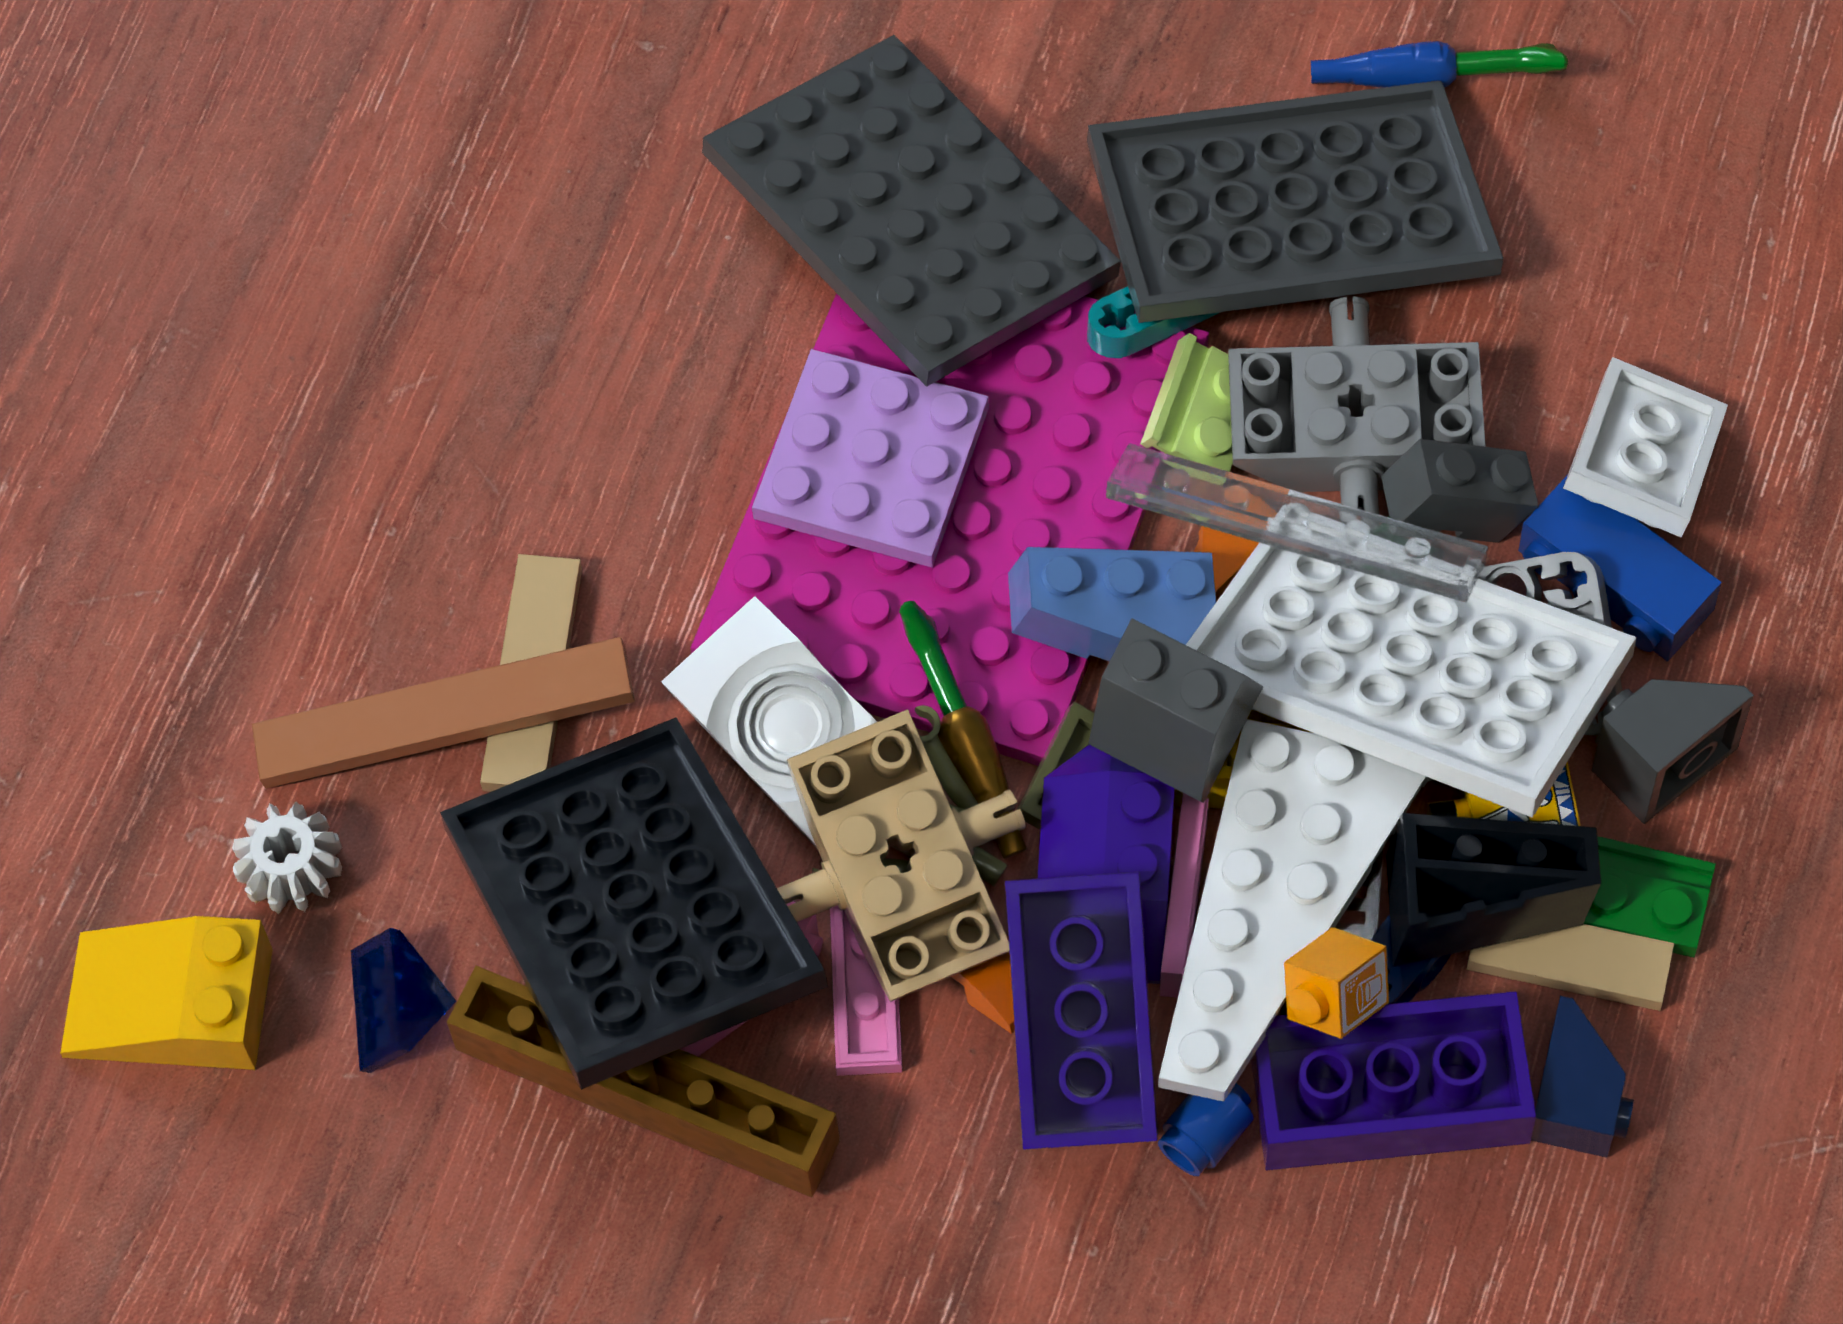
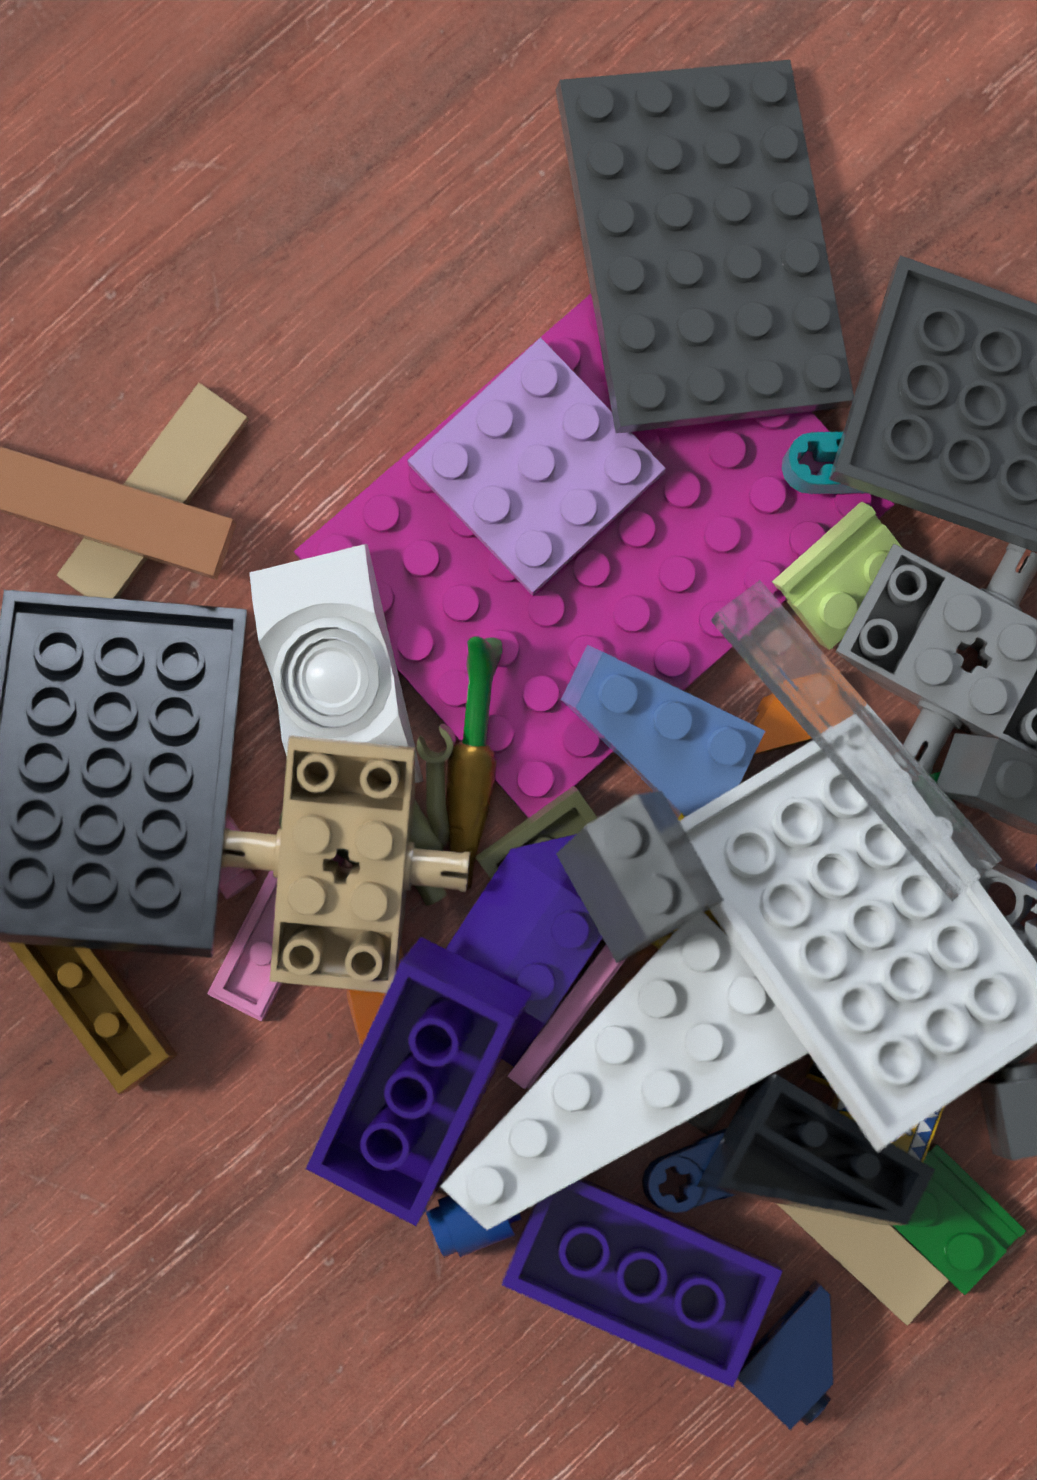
camera: 30 degrees right, 20 degrees up
(1336, 982) = (633, 1188): light orange brick -> none

